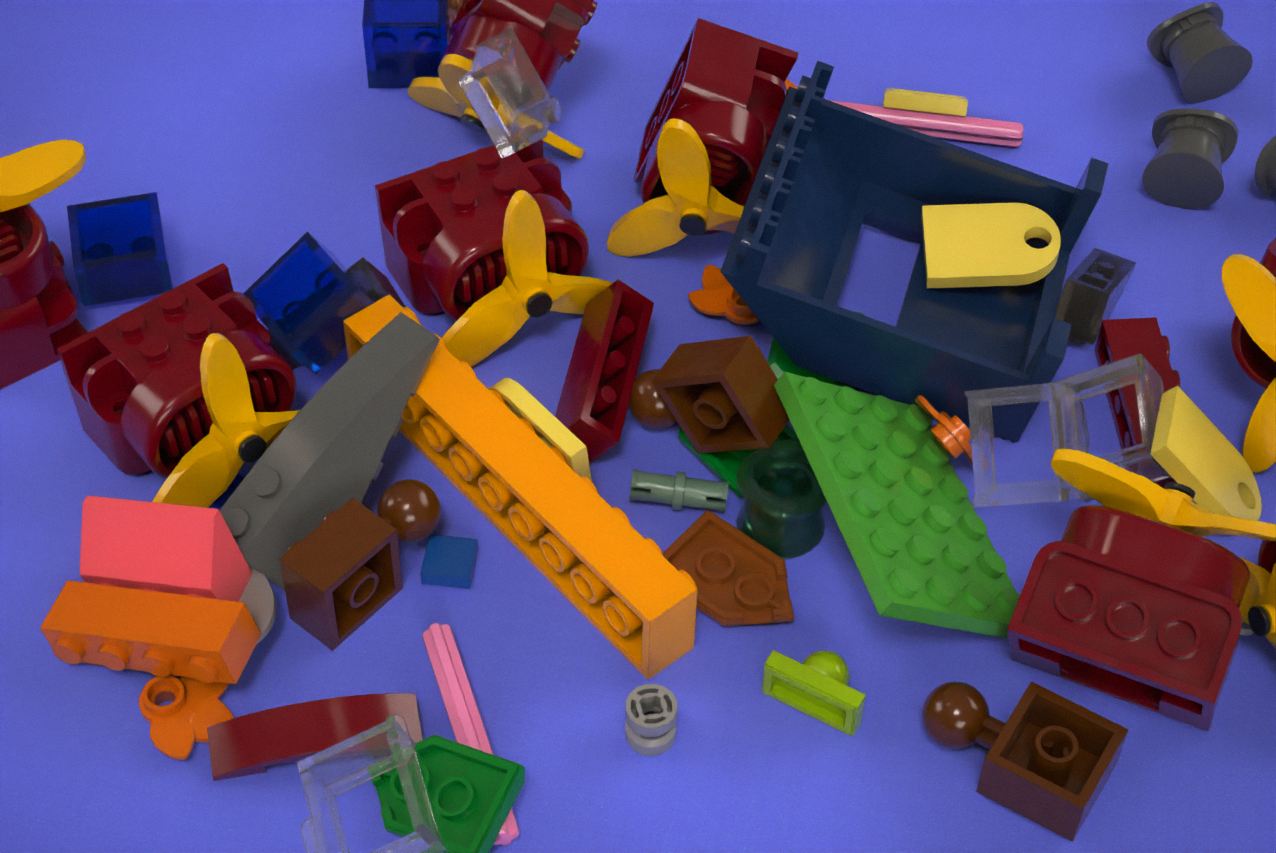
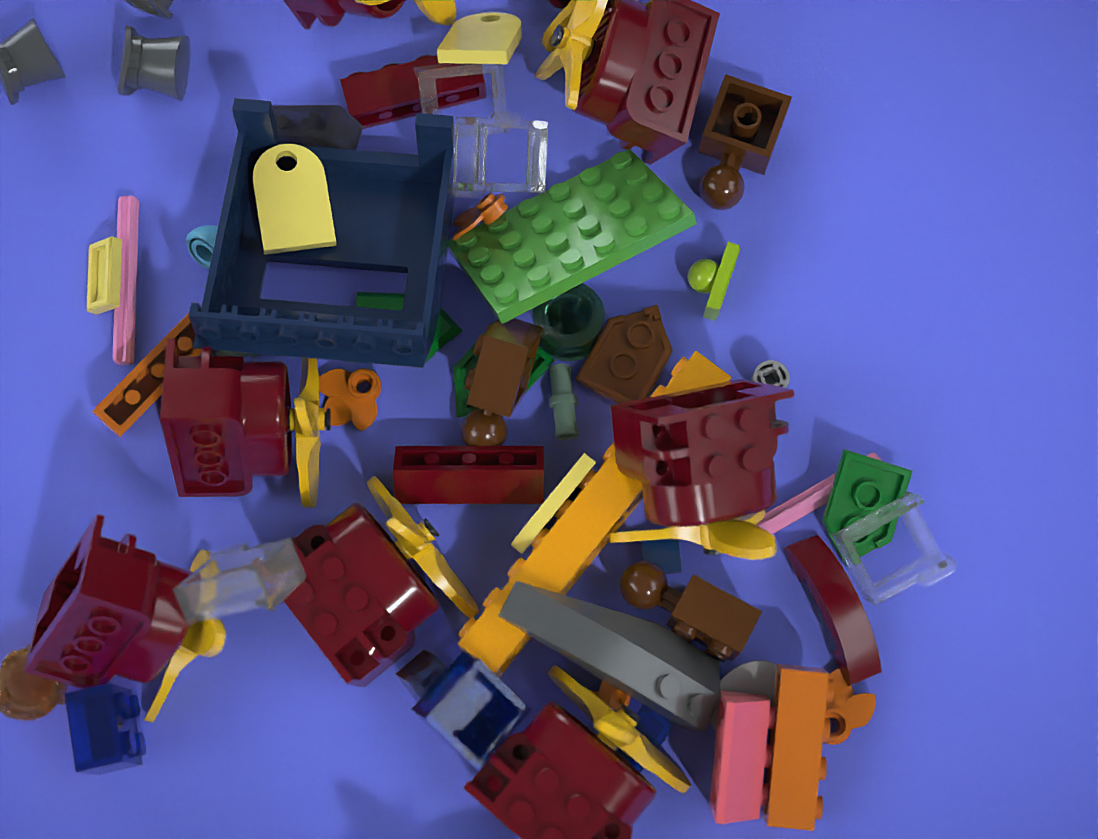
camera: 100 degrees left, 25 degrees up
(530, 546) = (704, 464): none -> dark red brick

